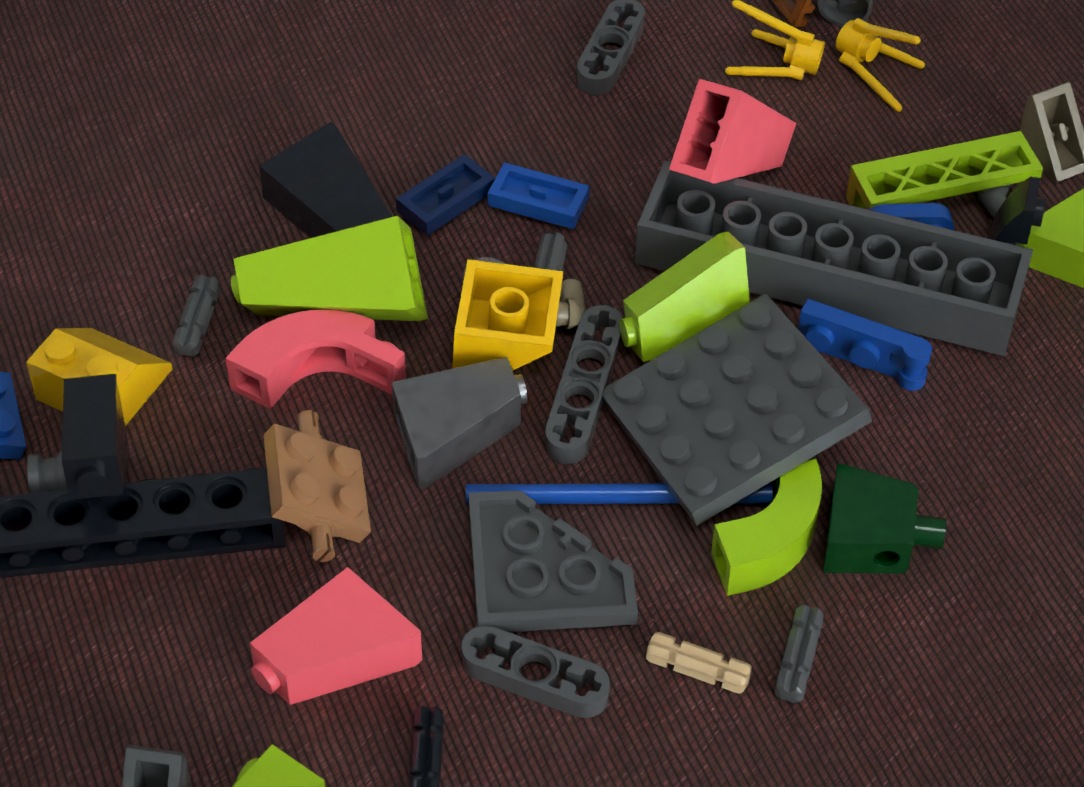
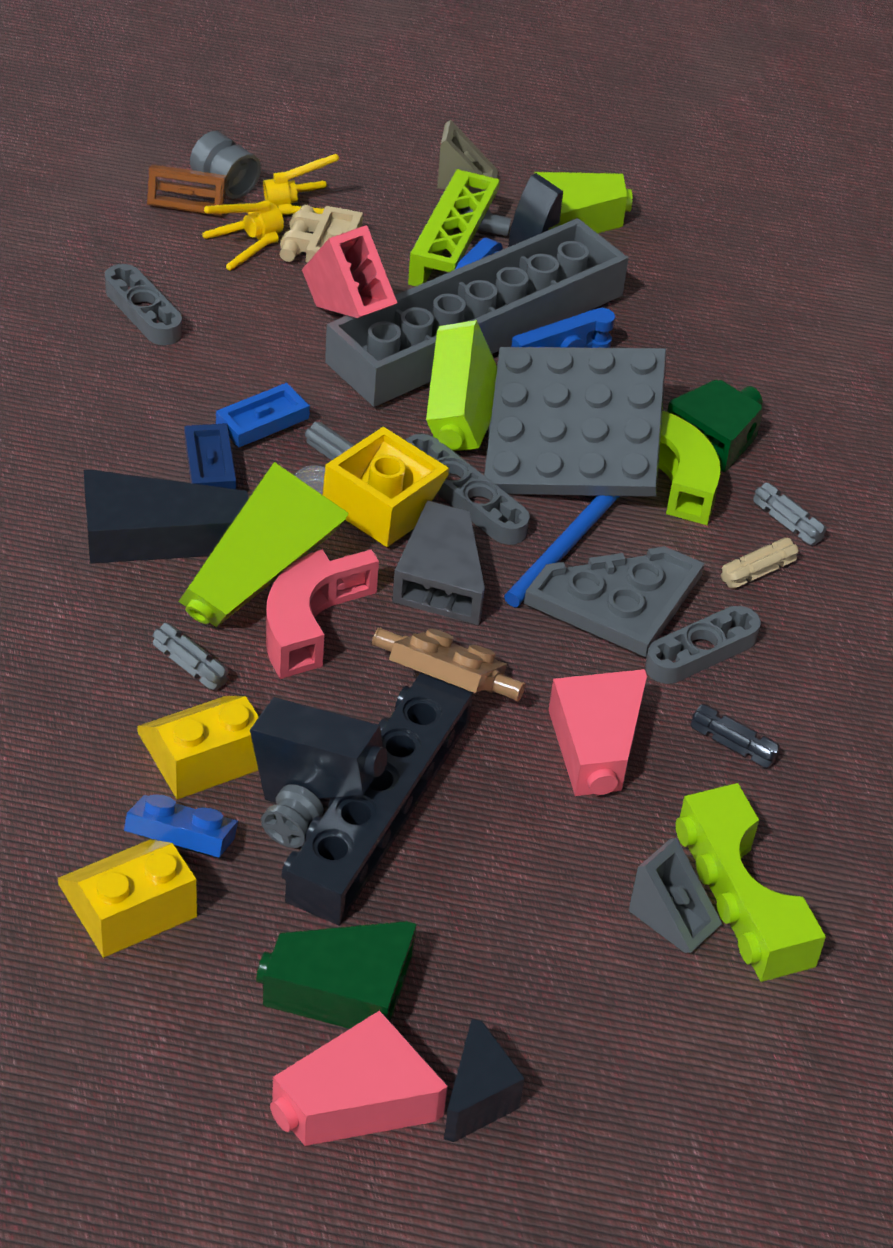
camera: 60 degrees left, 5 degrees down
(833, 102) = (325, 225): none -> tan plate

